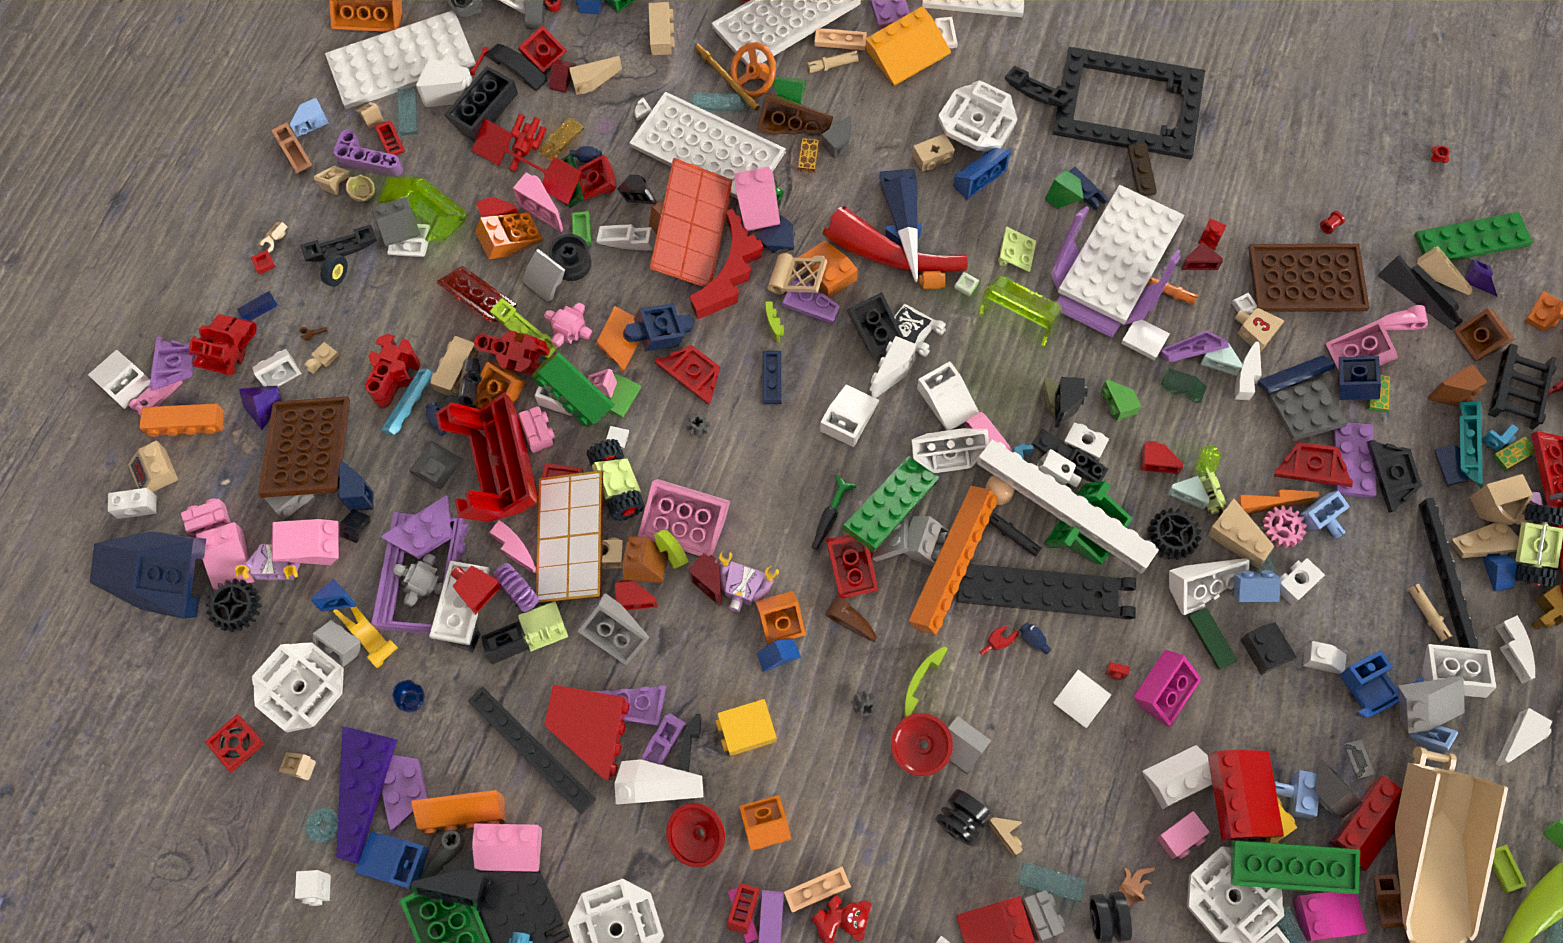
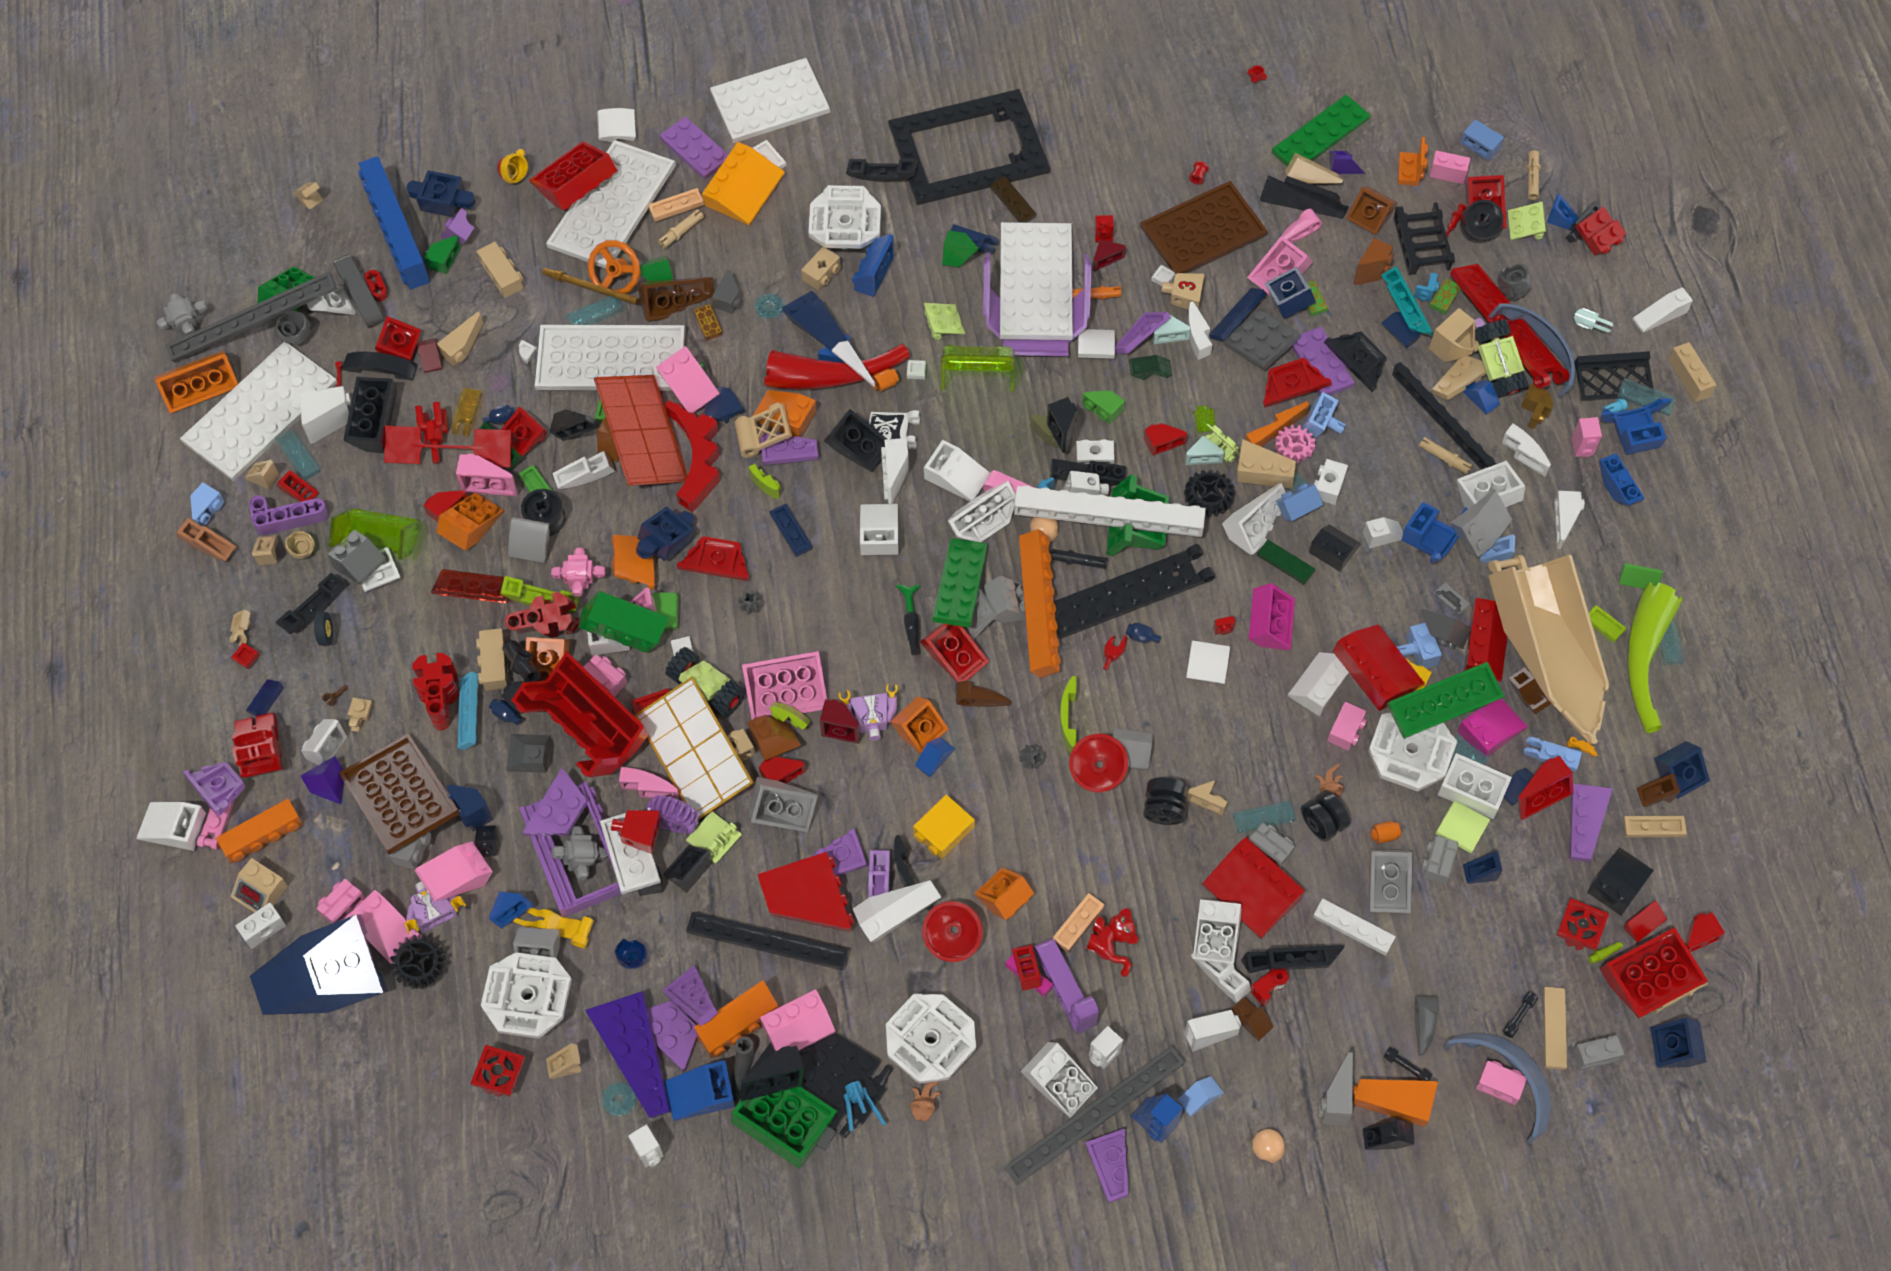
camera: 30 degrees left, 5 degrees down
(431, 768) = (691, 996): none -> medium lavender wing
(872, 170) = (774, 310): none -> clear light blue gear

